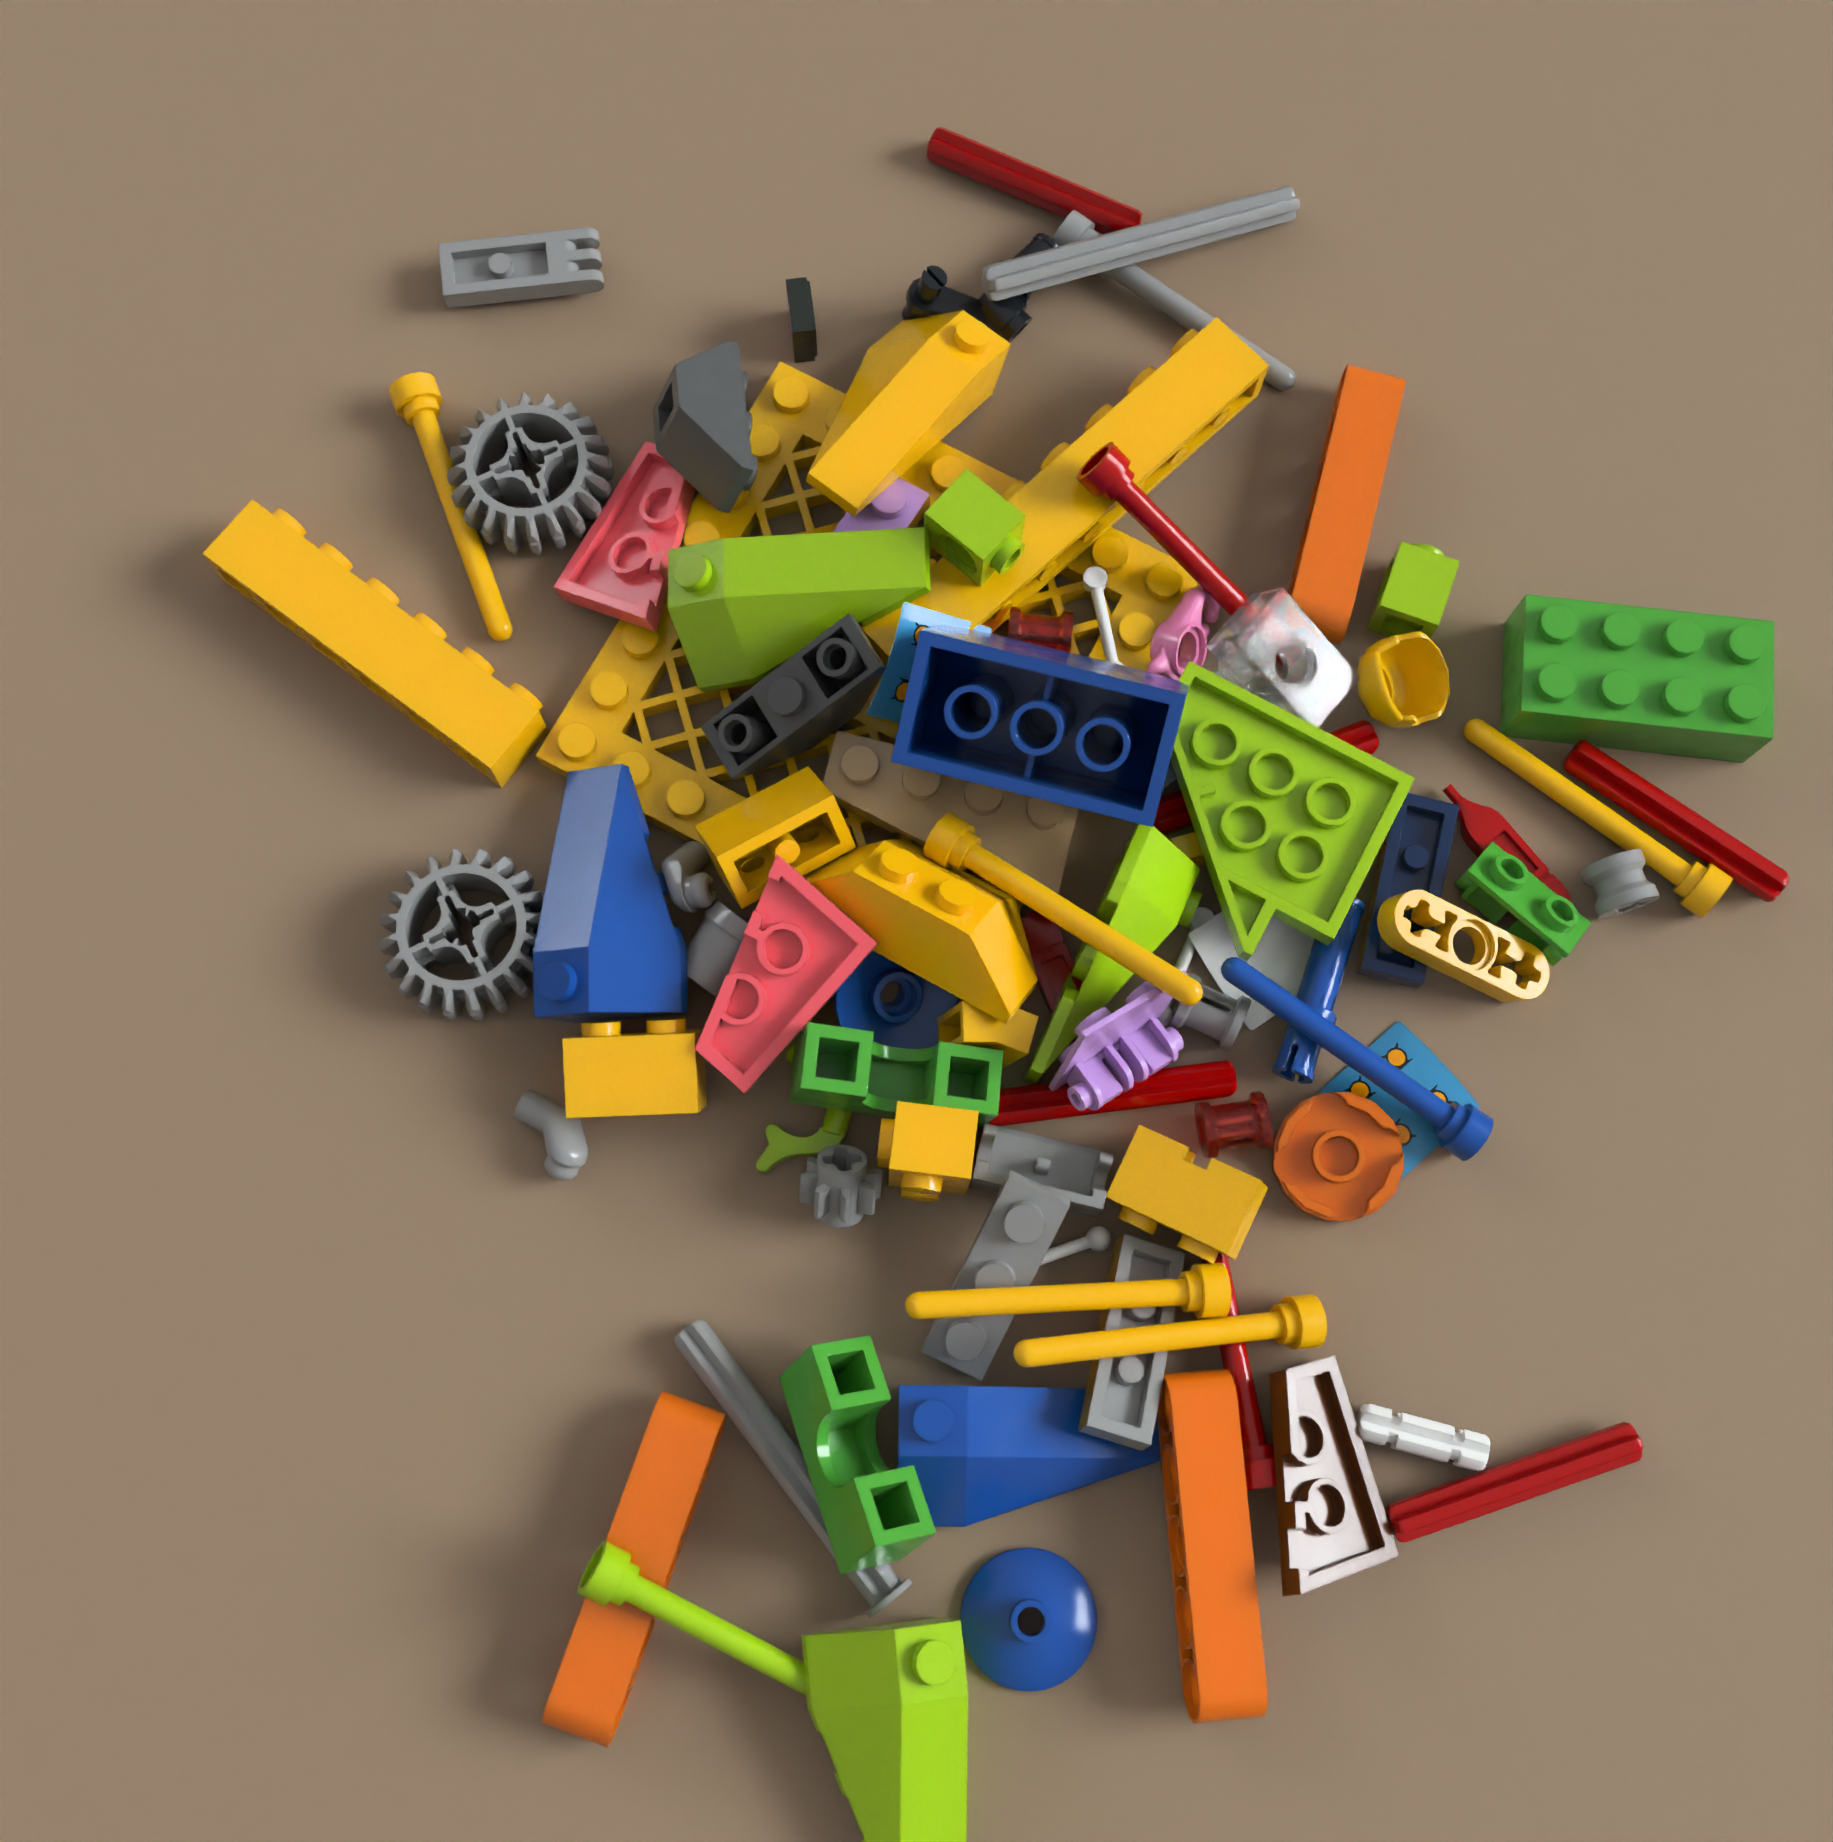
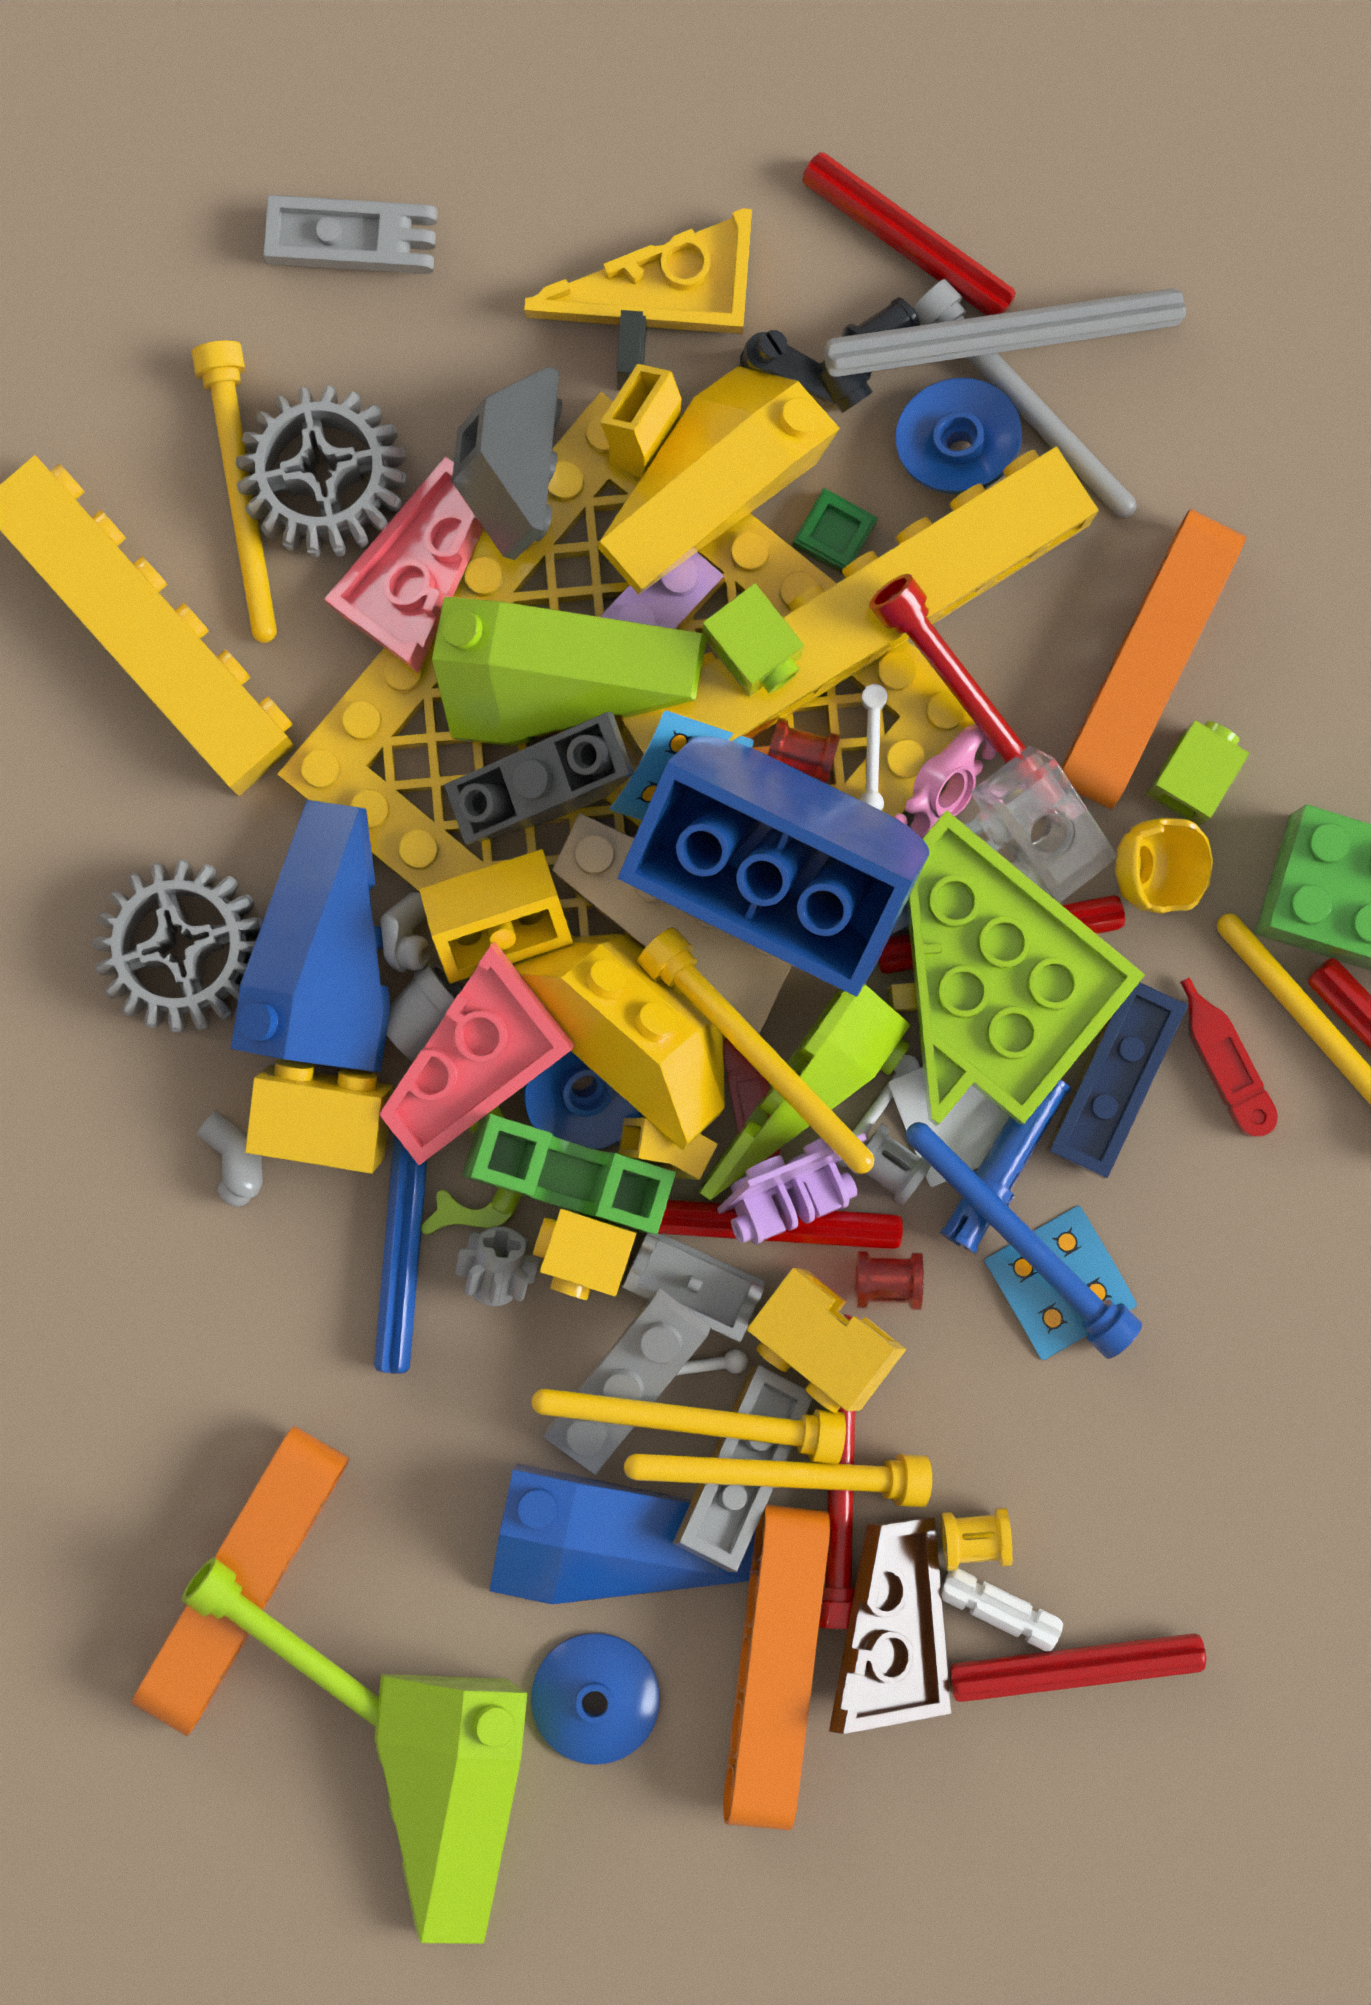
camera: 10 degrees right, 10 degrees up
(741, 1199) = (400, 1262): none -> blue axle
(774, 1447) = (399, 1516): light grey axle -> none
(824, 367) = (641, 418): none -> yellow piece
(834, 1407) = (449, 1478): bright green arch -> none
(839, 254) = (681, 285): none -> yellow wing
(1022, 445) = (834, 531): none -> green tile
(1118, 338) = (952, 413): none -> blue dish
(1337, 1156) = (984, 1329): orange tile -> none
(1381, 1368) = (957, 1536): none -> yellow bush
(1437, 951) = (1182, 1150): yellow beam -> none
(1503, 884) = (1238, 1126): bright green hinge -> none
(1619, 883) = (1329, 1115): light grey wheel -> none

